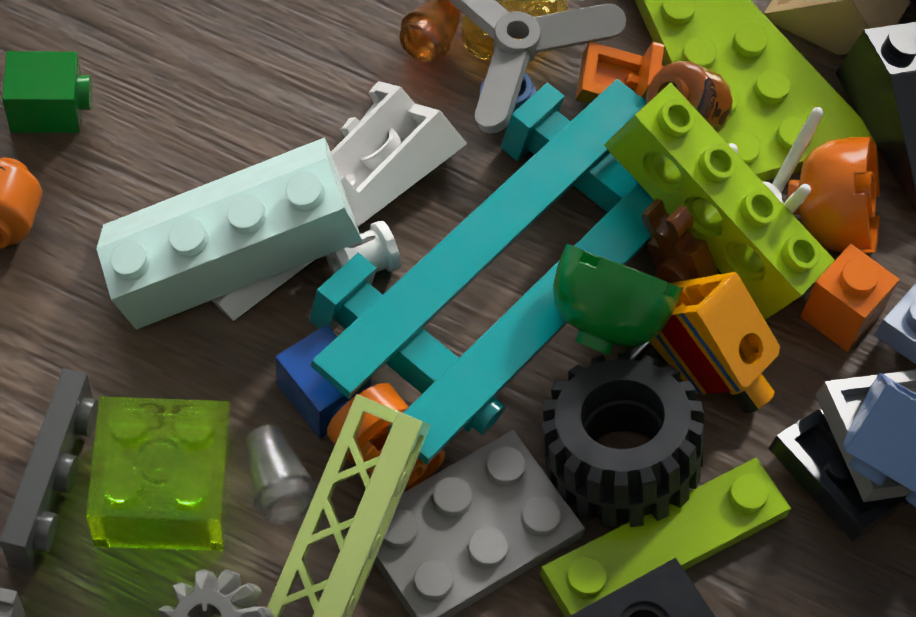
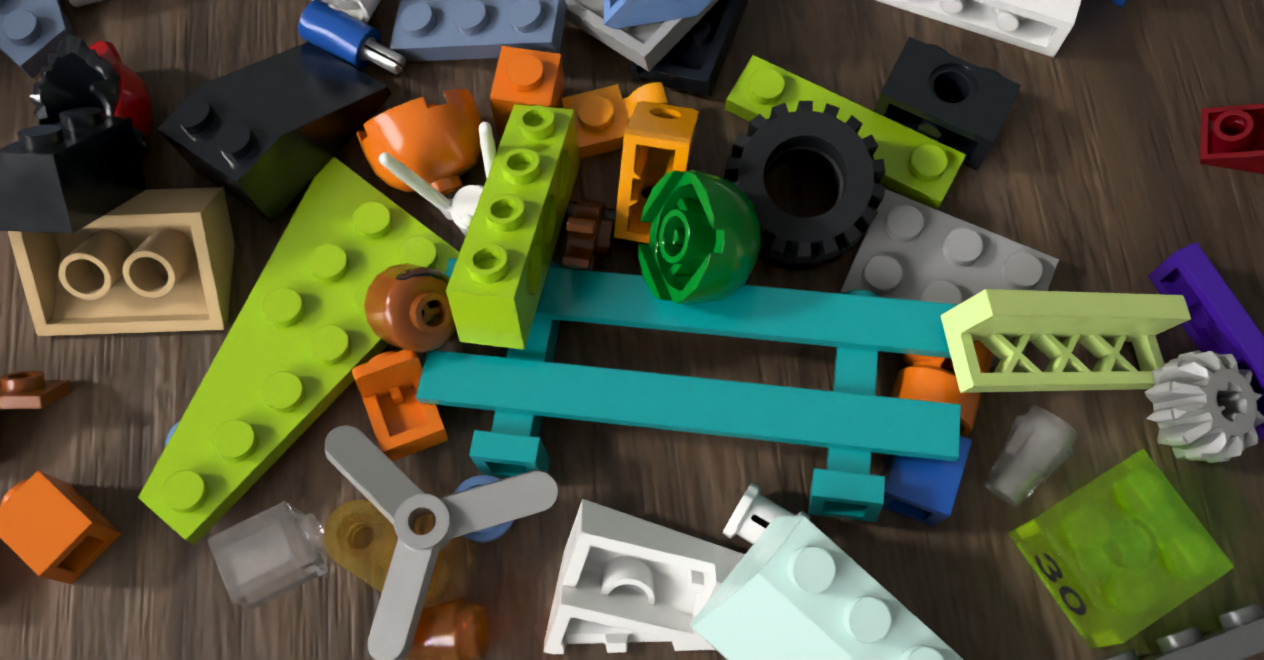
camera: 115 degrees left, 10 degrees up
(800, 361) = (604, 115): none -> light orange plate

